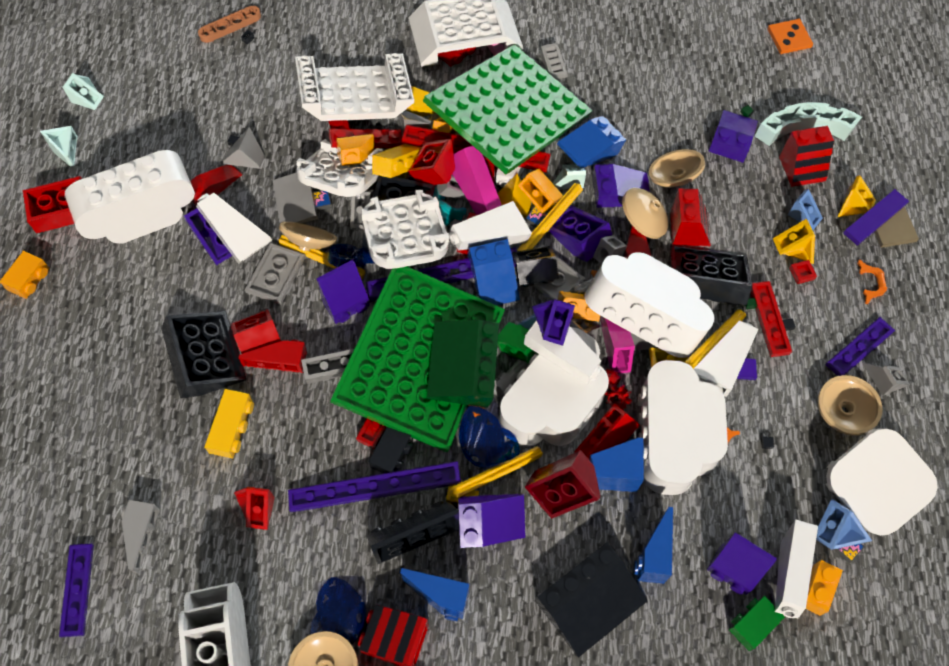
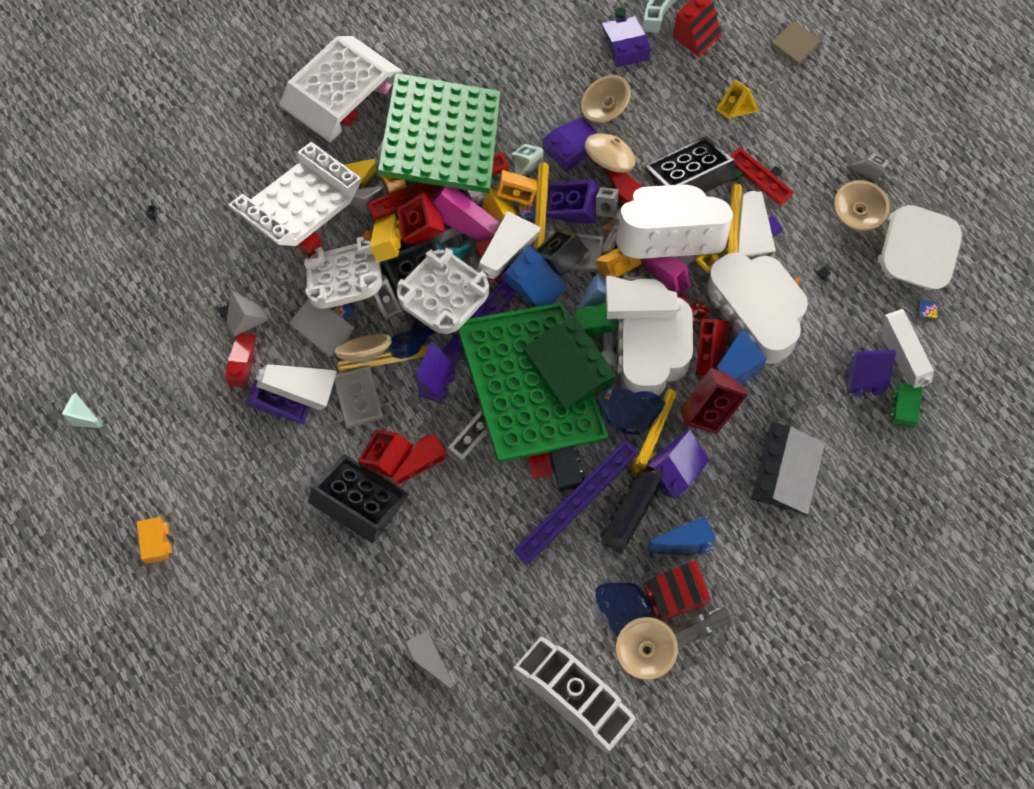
camera: 35 degrees left, 5 degrees up
(47, 206) = (127, 465): red brick -> none
(76, 590) = (419, 733): dark purple tile -> none
(82, 91) = (52, 358): light aqua slope -> none
(131, 198) = (198, 414): white brick -> none
(228, 21) = (121, 209): nougat beam -> none
(229, 424) = (428, 534): yellow brick -> none
(256, 506) = (500, 579): red slope -> none
(354, 149) = (340, 252): light orange slope -> none
(382, 137) = (338, 236): red plate -> none
(552, 51) = (429, 58): light grey slope -> none
(554, 320) = (622, 285): dark purple slope -> none
(592, 142) = (525, 120): blue slope -> none
(655, 560) = (810, 405): blue slope -> none
(689, 219) = (646, 137): red slope -> none
(803, 272) = (757, 123): red plate -> none
(807, 209) = (724, 70): medium blue slope -> none
(822, 587) = (933, 348): light orange brick -> none
(840, 528) = (916, 299): medium blue slope -> none
(857, 199) = (755, 36): yellow slope -> none
(860, 347) = (837, 155): dark purple tile -> none
(876, 217) = (779, 43): dark purple tile -> none
(879, 274) = (814, 90): orange helmet -> none

